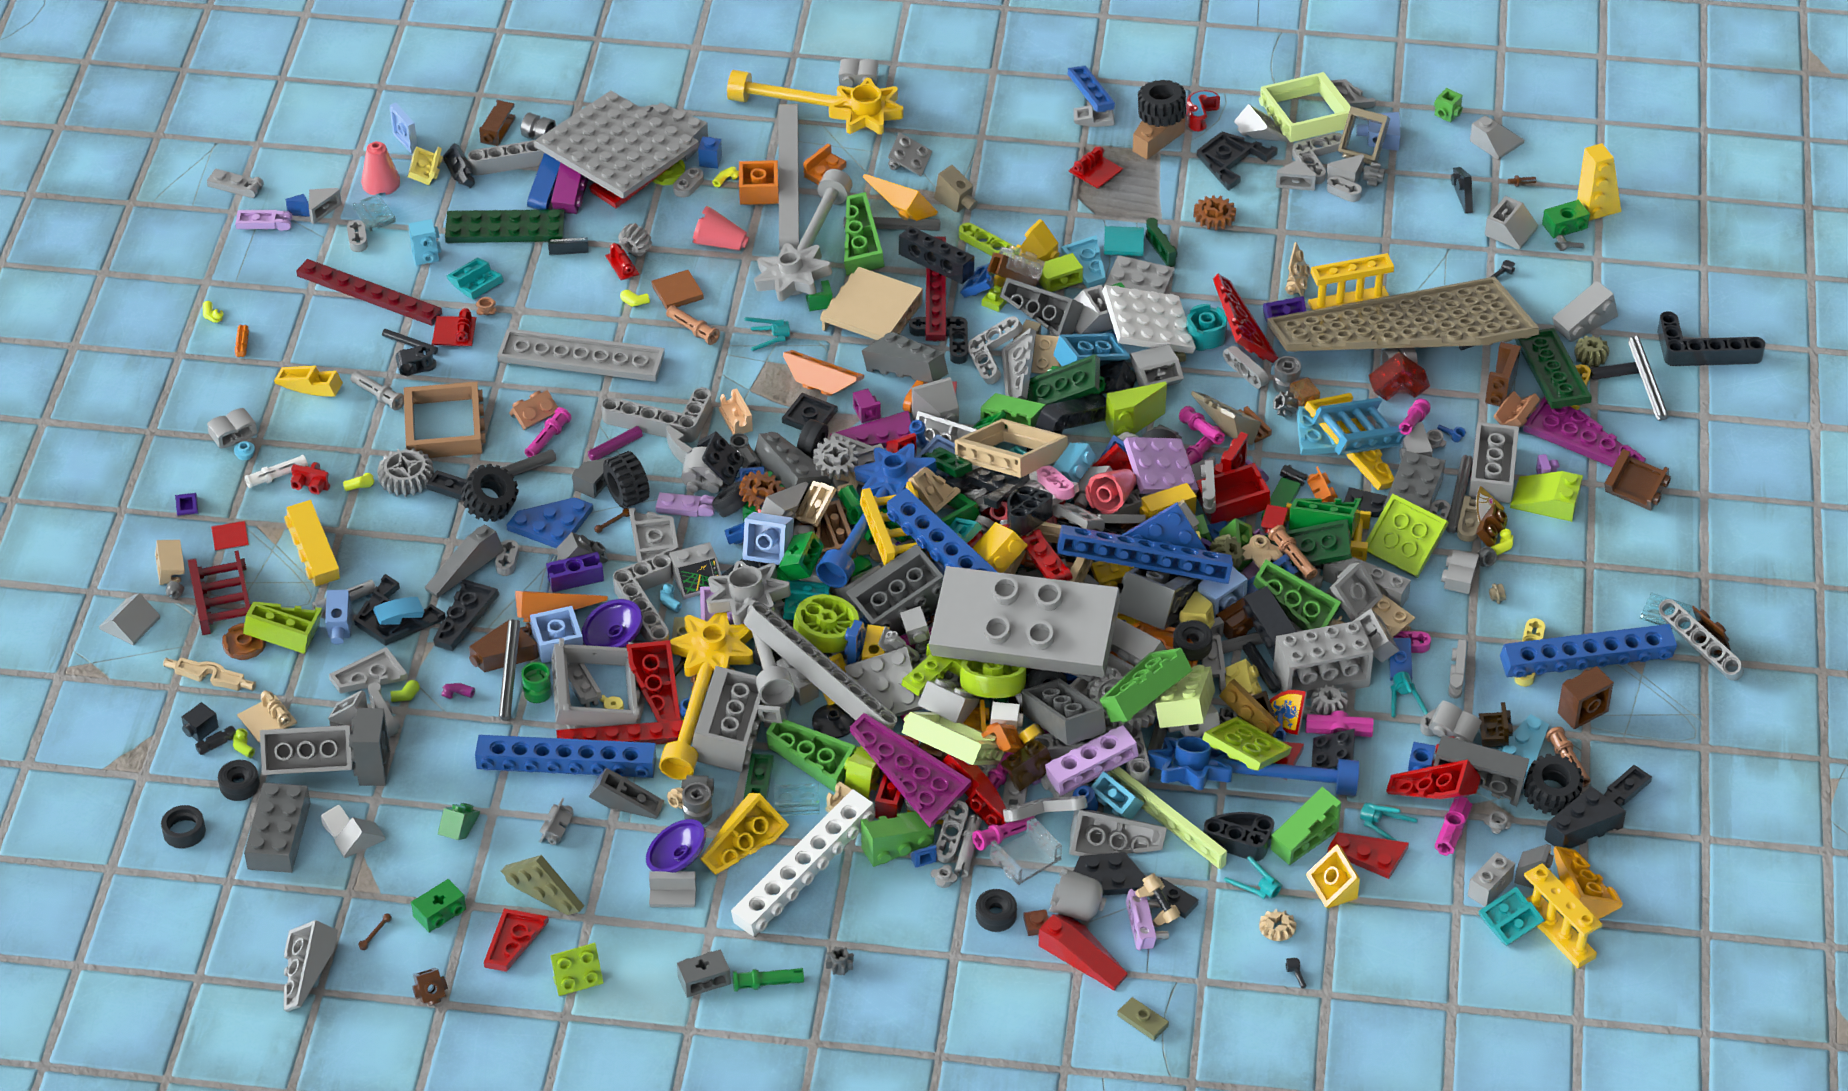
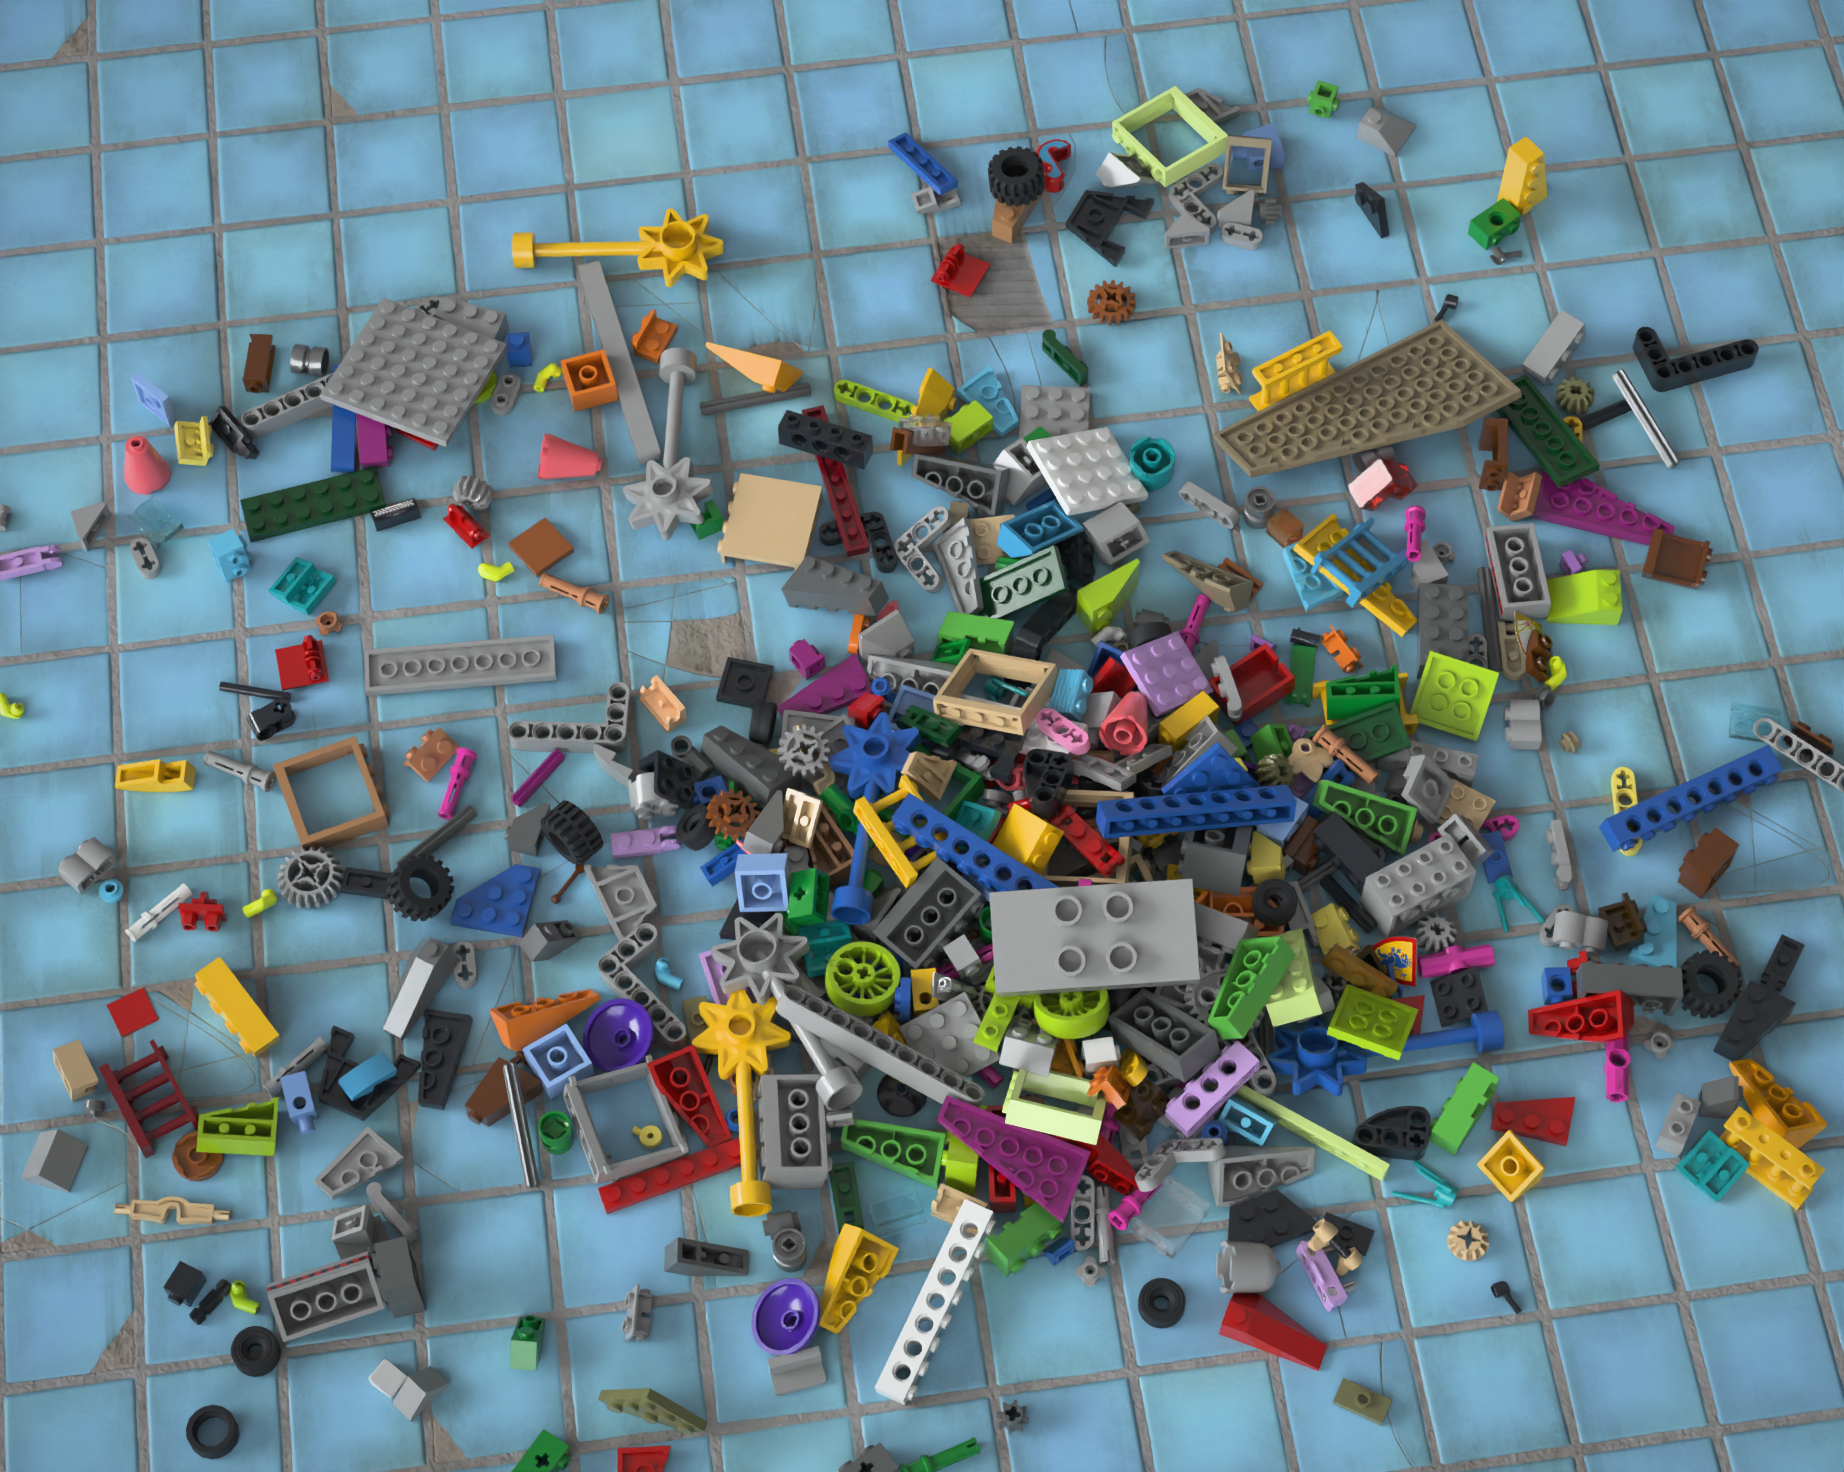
camera: 15 degrees left, 15 degrees up
(186, 504) = (68, 983): dark purple slope -> none
(241, 340) = (57, 738): orange axle -> none
(266, 715) = (259, 1256): tan hinge -> none
(277, 827) = (323, 1406): dark grey brick -> none
(298, 205) = (62, 534): blue slope -> none
(369, 292) = (184, 633): dark red plate -> none
(407, 693) = (411, 1179): lime arm -> none
(459, 688) = (465, 1159): magenta arm -> none
(565, 755) = (607, 1216): blue brick -> none
(575, 572) = (549, 958): dark purple piece -> none
(583, 684) = (608, 1118): light grey hinge -> none
(675, 797) = (763, 1245): tan plate -> none
(693, 567) = (687, 932): slope -> none
(779, 328) = (675, 576): teal plant -> none
(820, 374) = (744, 629): wedge -> none
(853, 71) = (653, 199): light grey brick -> none
(861, 239) = (733, 435): bright green wedge -> none
(908, 154) = (746, 300): light grey hinge -> none
(954, 190) = (815, 341): dark tan torso -> none
(978, 282) = (882, 460): blue wing -> none
(993, 300) = (901, 477): lime tile -> none
(1034, 920) = (1209, 1305): copper plate -> none
(1124, 241) = (1022, 363): teal slope -> none
(1197, 422) = (1180, 595): dark pink pin -> none
(1235, 456) = (1236, 637): red plate -> none
(1241, 321) = (1194, 454): red wing -> none
(1274, 516) = (1309, 711): red slope -> none
(1284, 307) = (1227, 416): dark purple brick -> none
(1285, 403) = (1268, 546): dark grey gear -> none
(1370, 501) = (1388, 653): black wing -> none
(1373, 813) = (1526, 1068): teal plant -> none
(1456, 434) = (1458, 539): blue hand -> none
(1510, 223) = (1439, 245): light grey slope -> none
(1521, 180) = (1426, 182): reddish brown piece -> none

